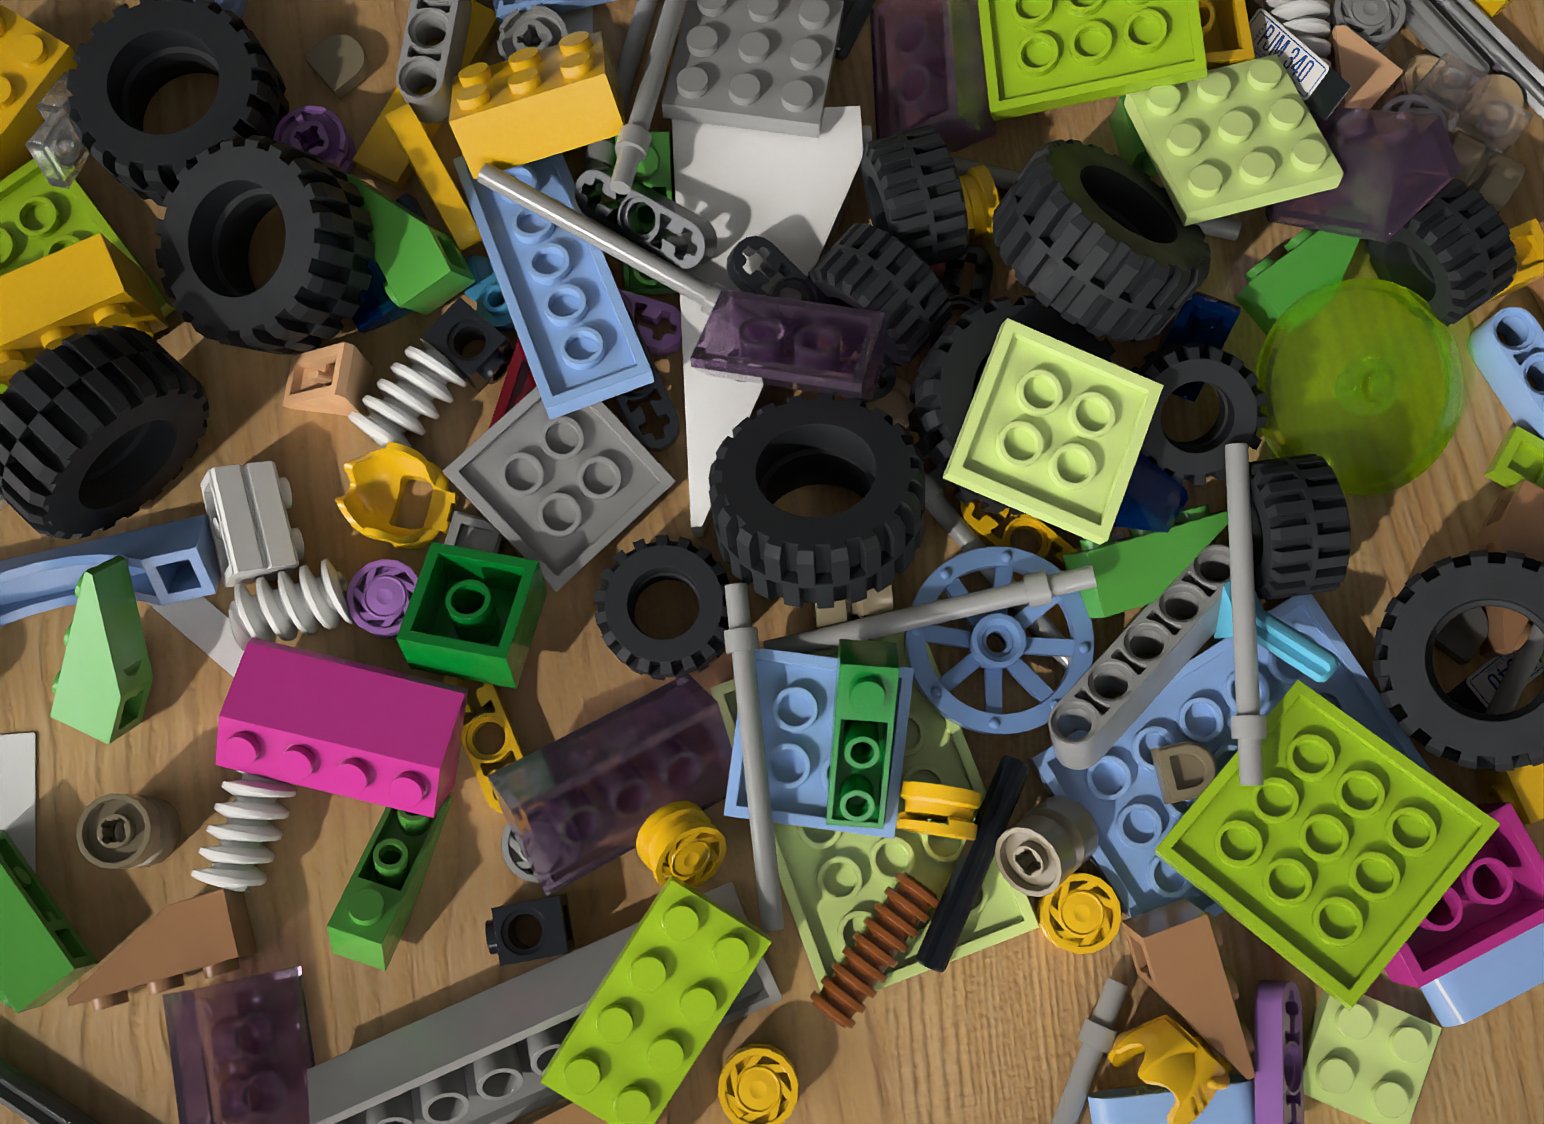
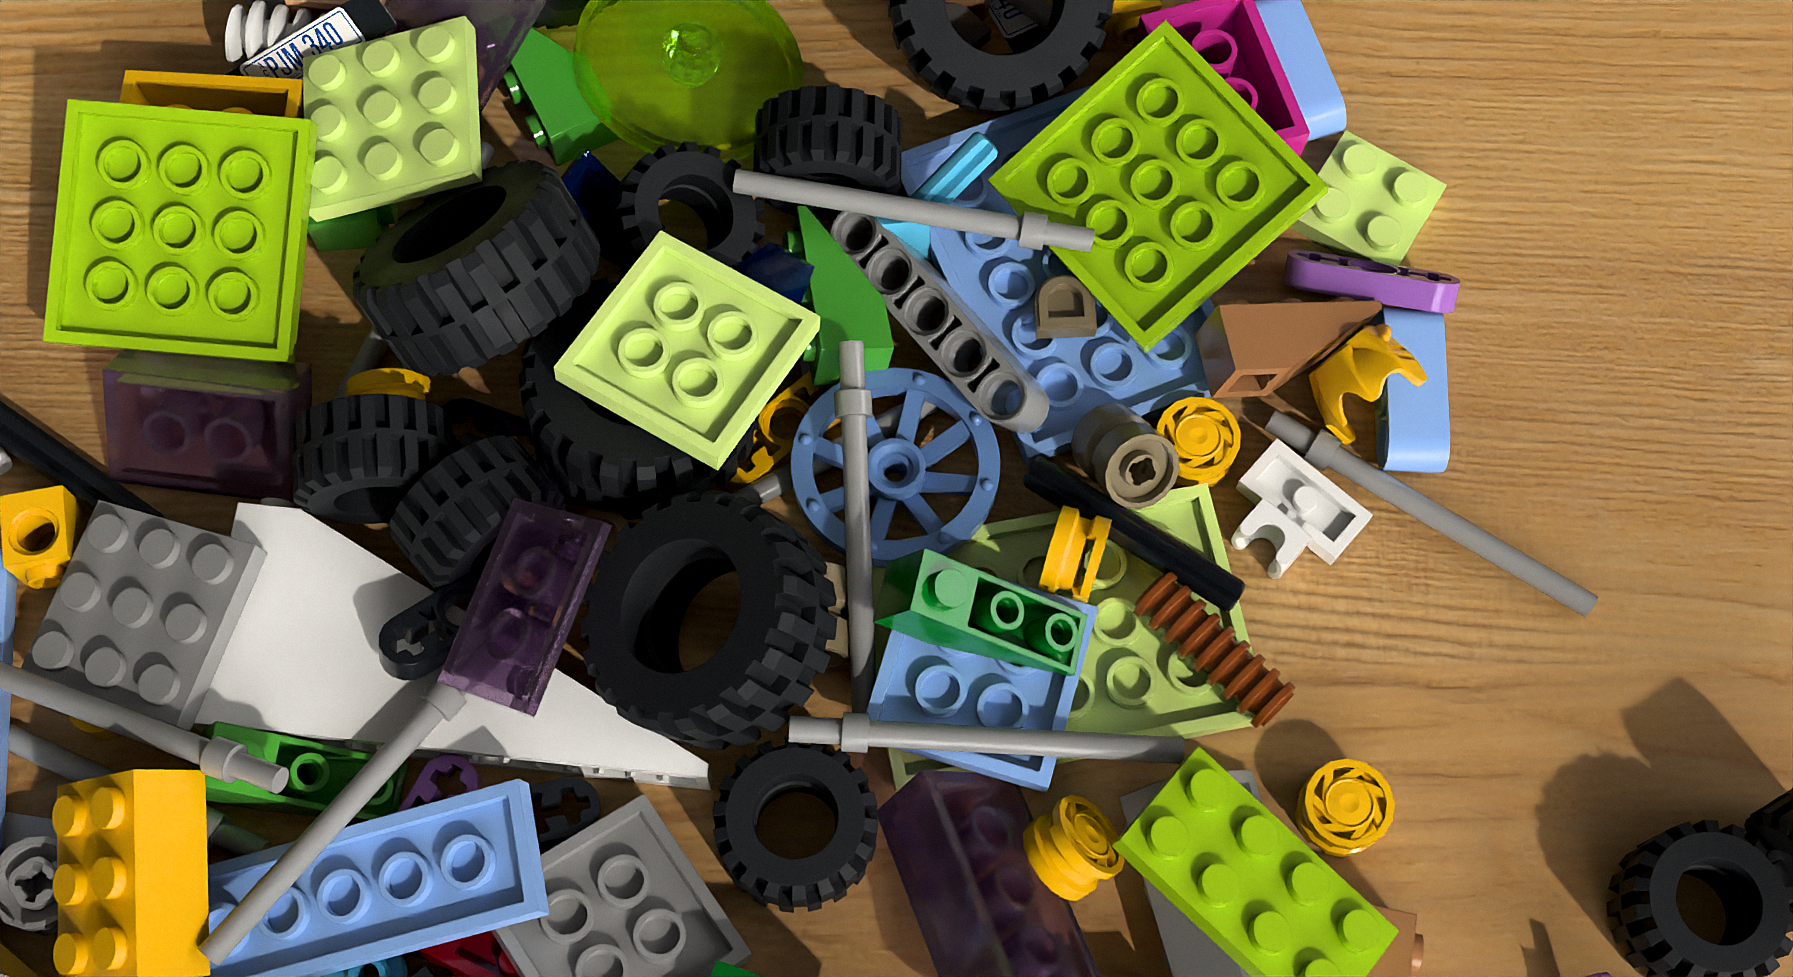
camera: 85 degrees left, 10 degrees down
(668, 215) = (318, 795): black beam -> none
(1032, 1016) = (1296, 510): none -> white plate

